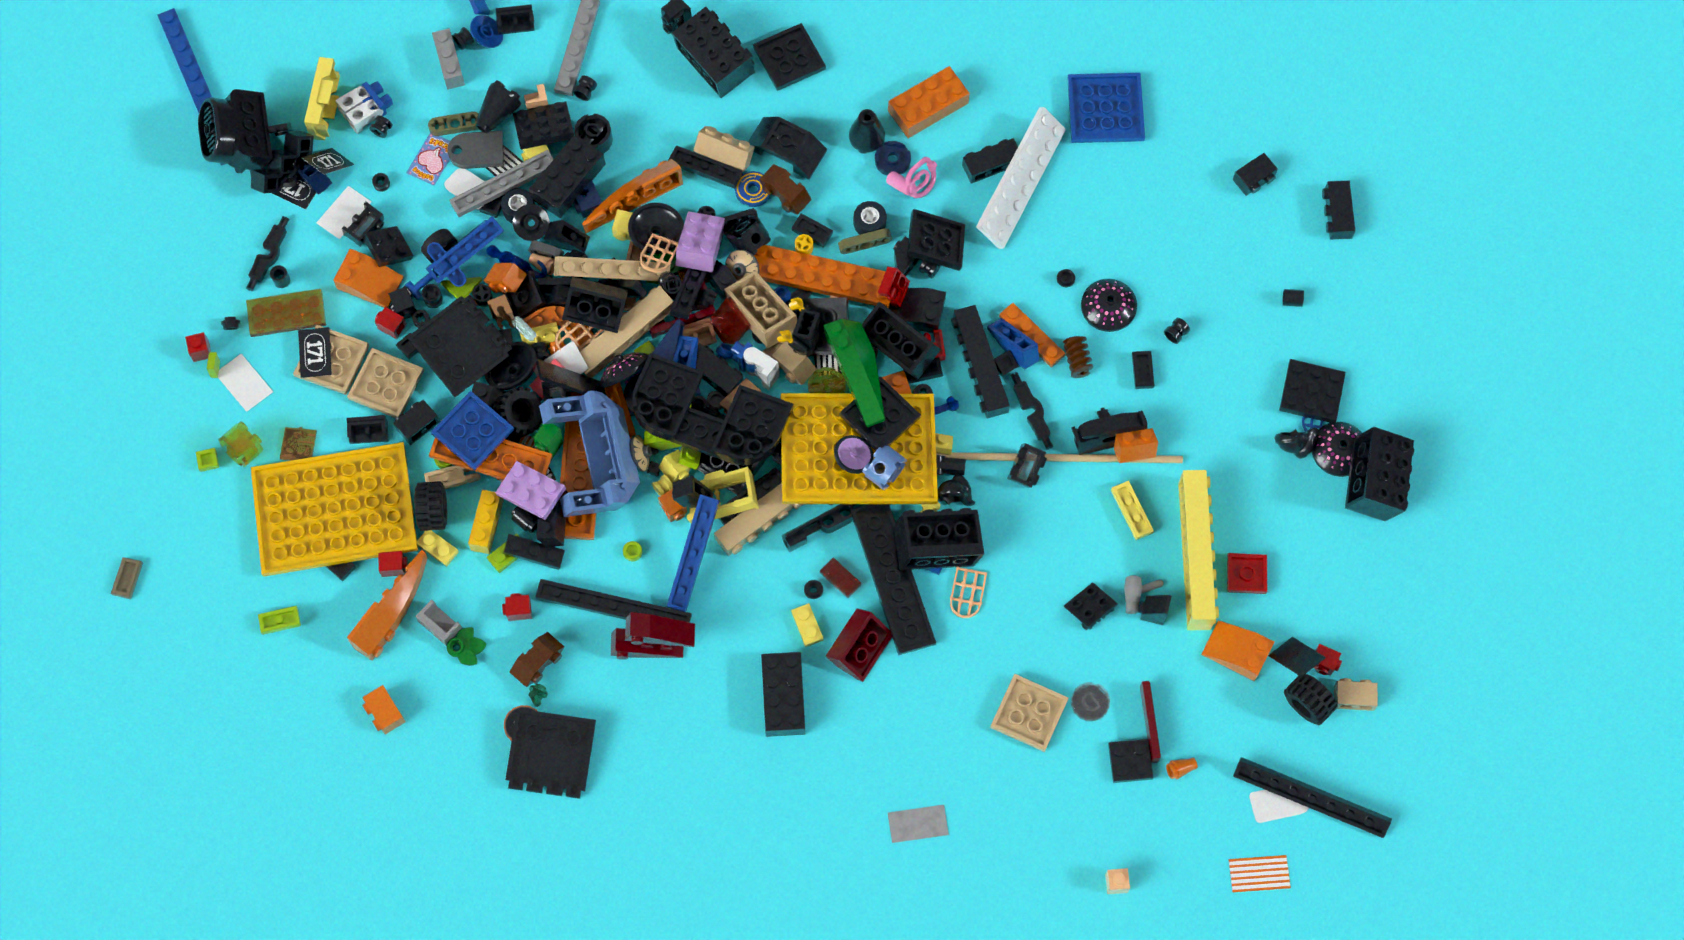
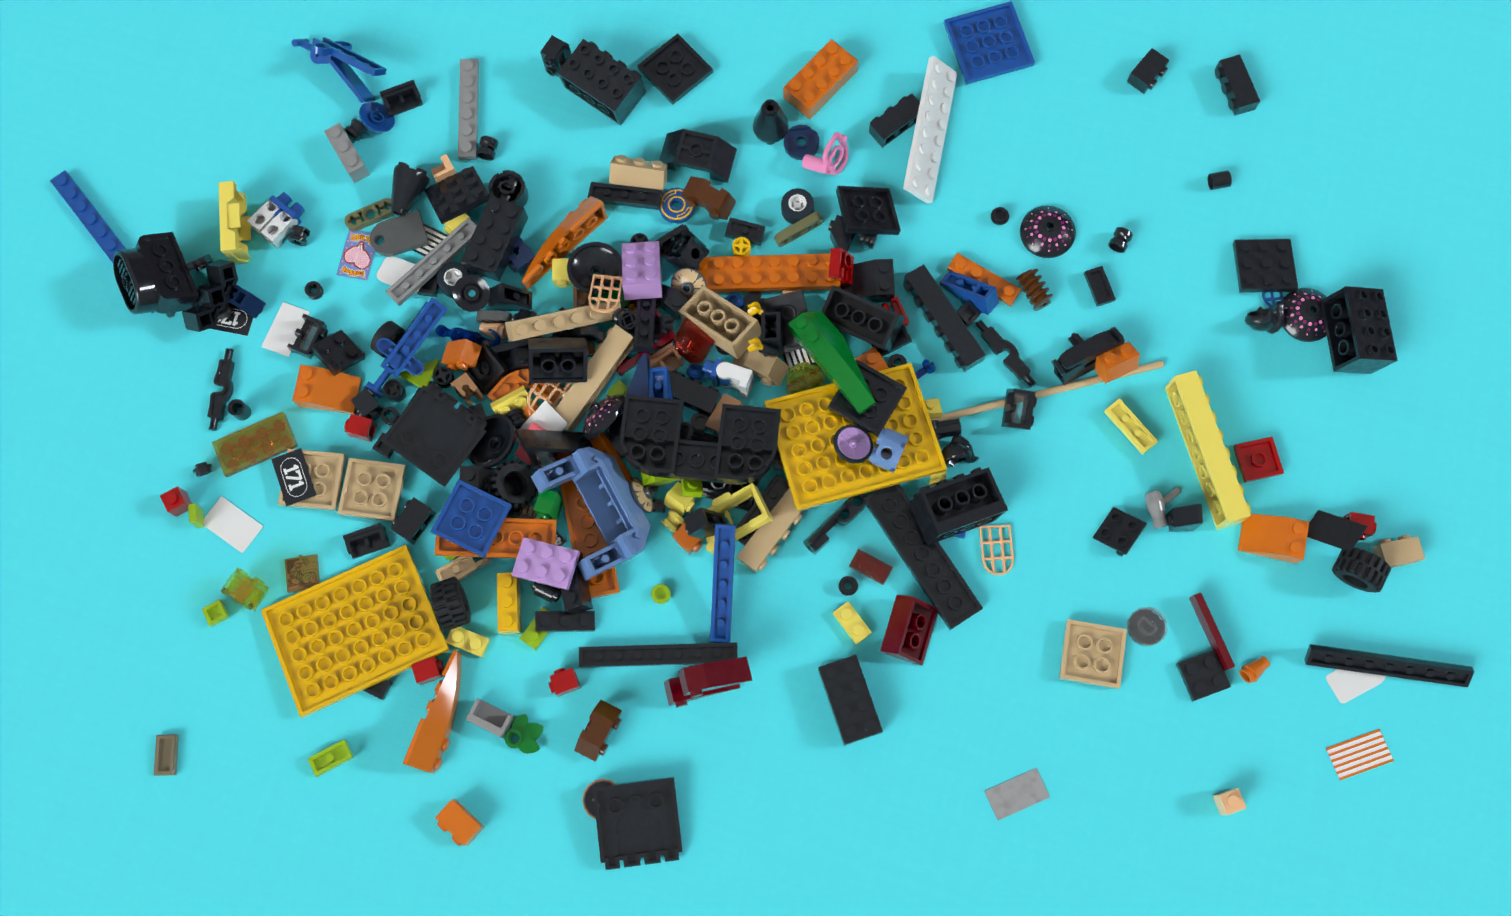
camera: 10 degrees left, 5 degrees up
(327, 161) = (255, 283): black sticker -> none
(524, 328) = (494, 401): light aqua axle -> none
(536, 694) = (608, 763): clear green plate -> none

